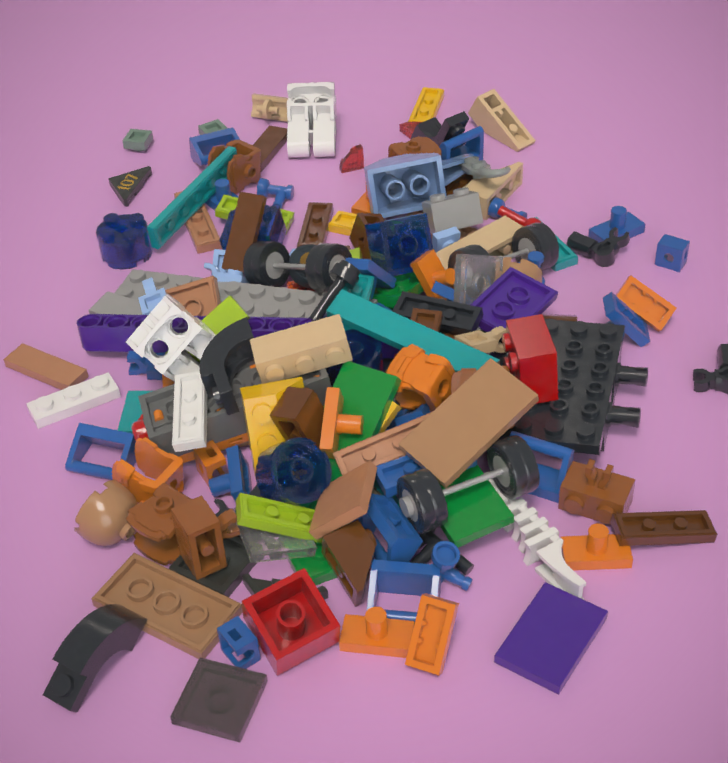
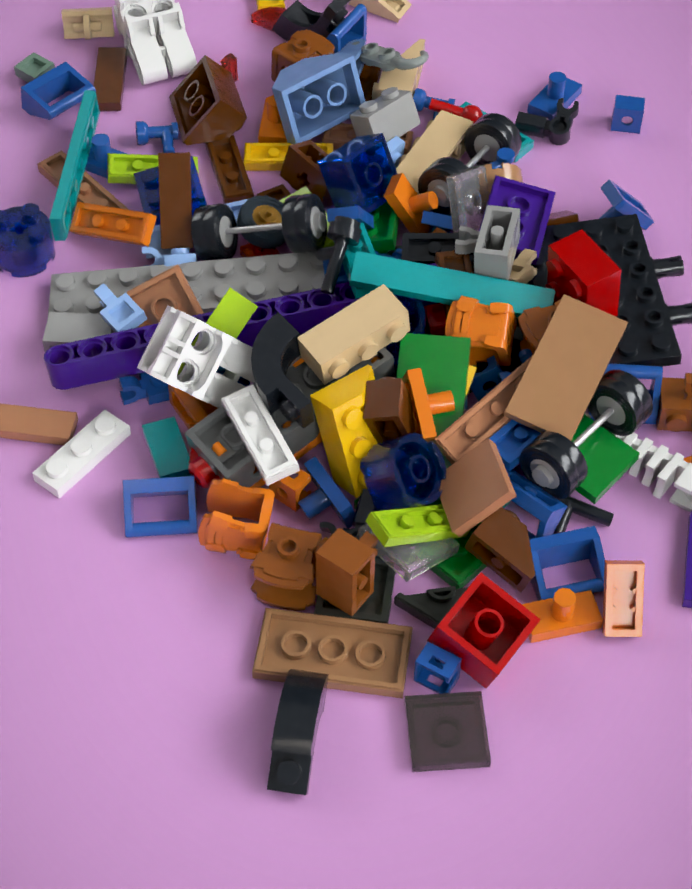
camera: 25 degrees left, 10 degrees up
(104, 515) = (223, 577): medium nougat cylinder -> none
(196, 243) = (113, 224): none -> orange tile
(243, 167) = (112, 110): dark orange piece -> none
(324, 176) = (207, 104): none -> reddish brown slope
(446, 556) = (599, 516): blue piece -> none
(464, 309) = (495, 242): none -> light grey brick
(646, 303) = (637, 180): orange tile -> none

